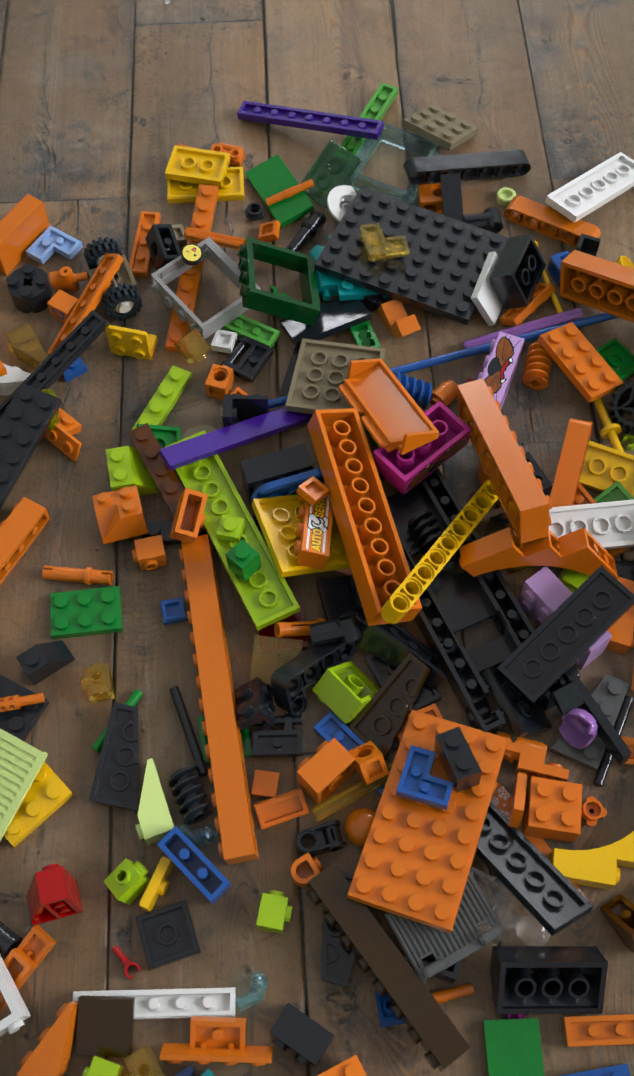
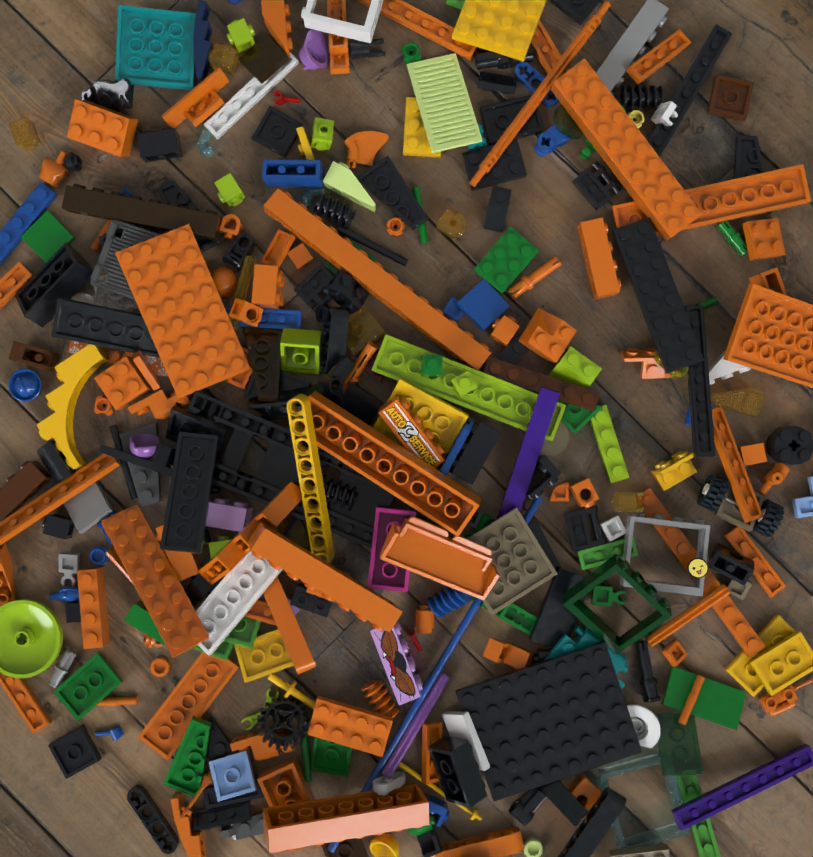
camera: 140 degrees right, 25 degrees up
(49, 979) = (315, 51): none -> medium lavender piece
(53, 895) = (349, 89): red wedge -> none
(101, 835) = (363, 147): none -> orange arm
(145, 590) = (483, 305): none -> blue tile
(149, 723) = (400, 226): none -> orange plate
(188, 516) = (495, 364): orange brick -> none
(254, 211) = (708, 661): black plate -> none
(313, 491) = (430, 449): orange plate -> none
(382, 247) = (569, 698): clear yellow plate -> none
(419, 785) = (203, 319): blue plate -> none
(457, 759) = (190, 352): black brick -> none
(588, 303) = (384, 785): none -> white plate

